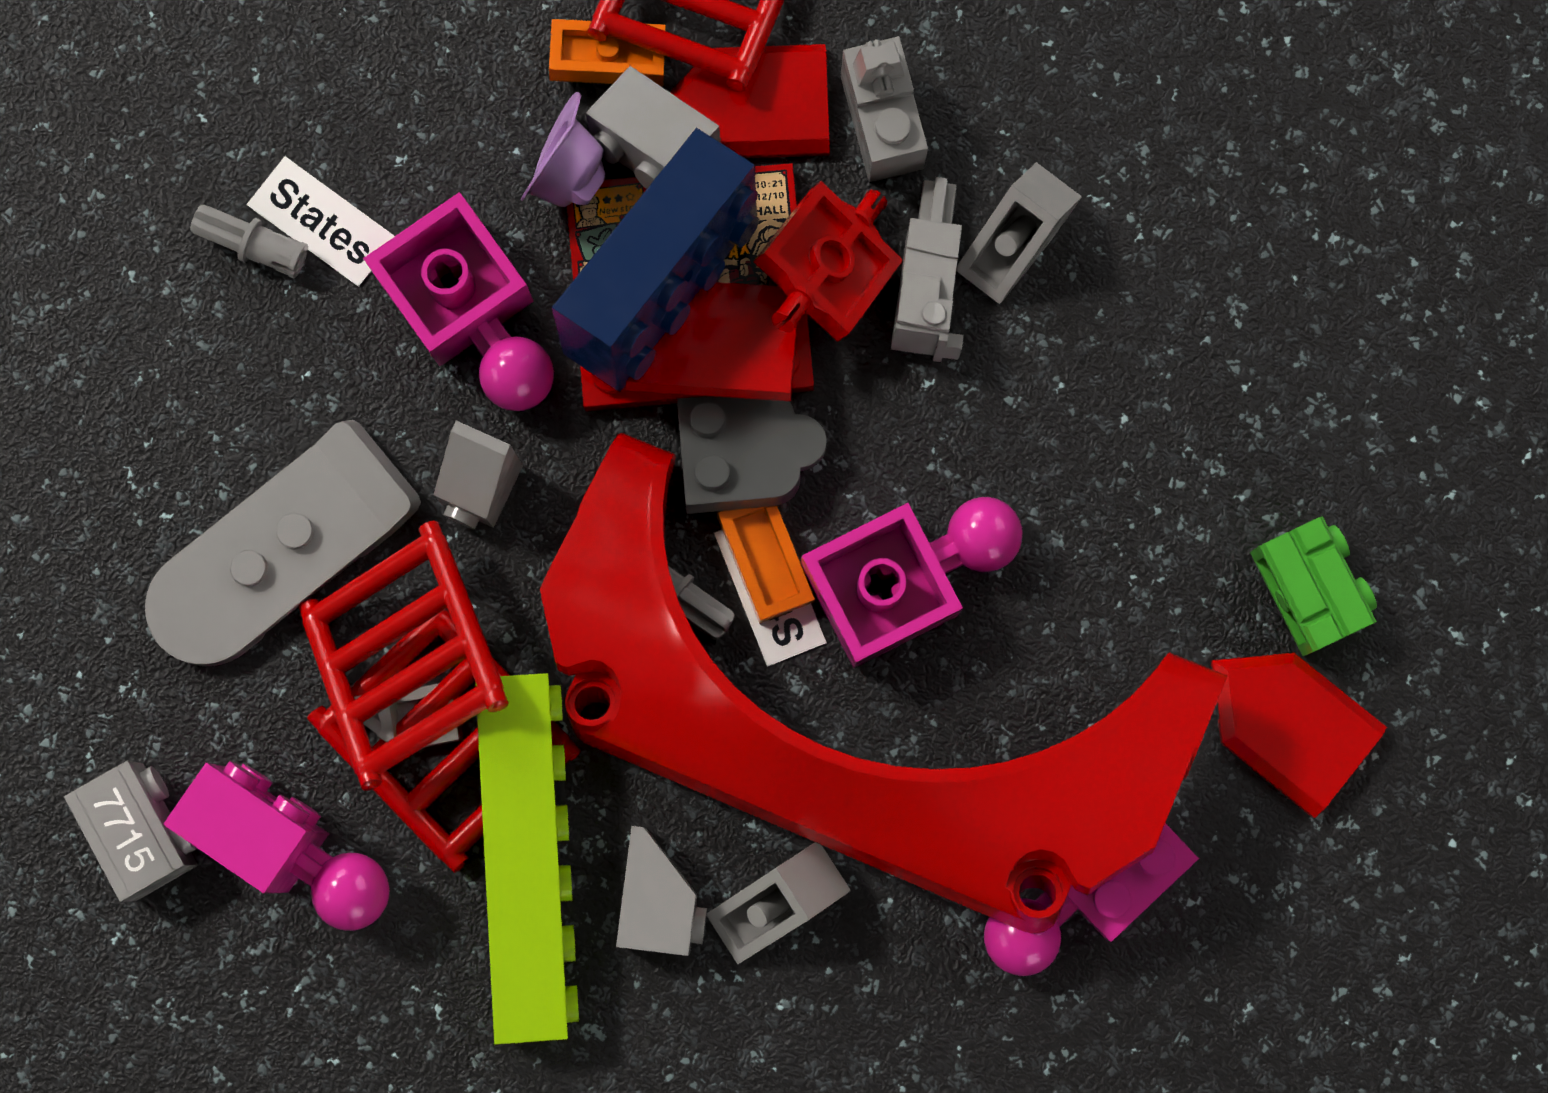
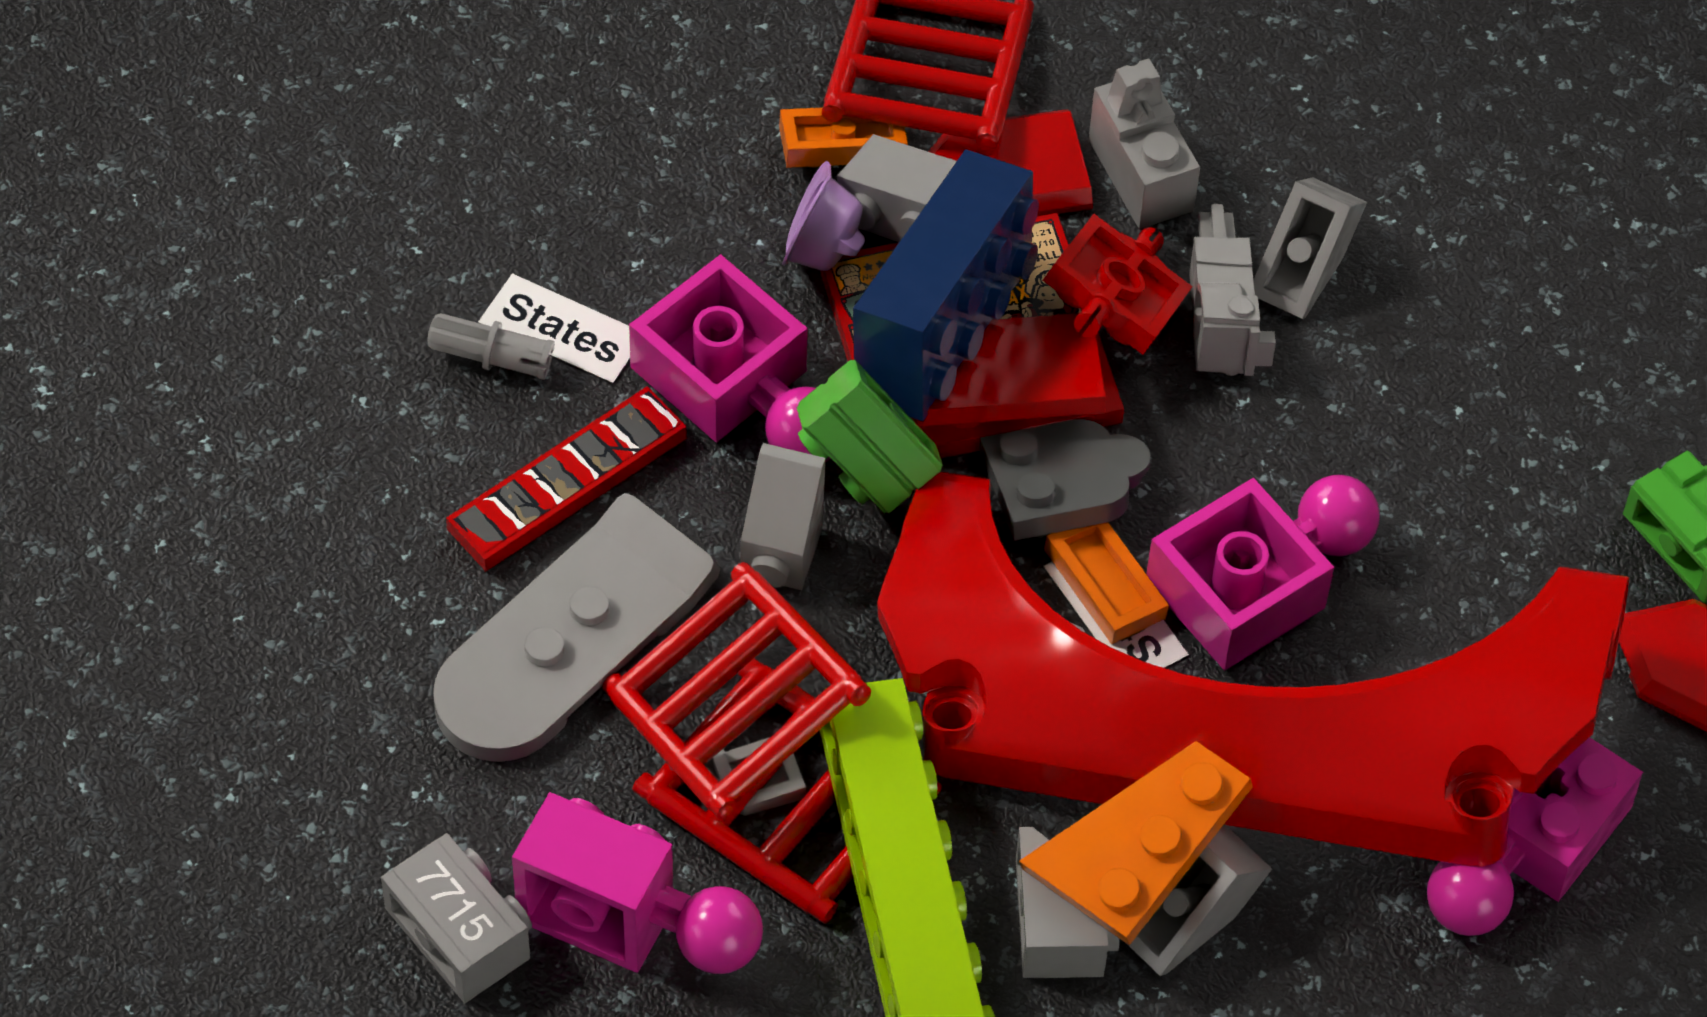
camera: 10 degrees left, 25 degrees down
(298, 387) = (566, 478): none -> tile
(563, 409) = (867, 437): none -> bright green brick
(730, 875) = (1142, 841): none -> orange wing

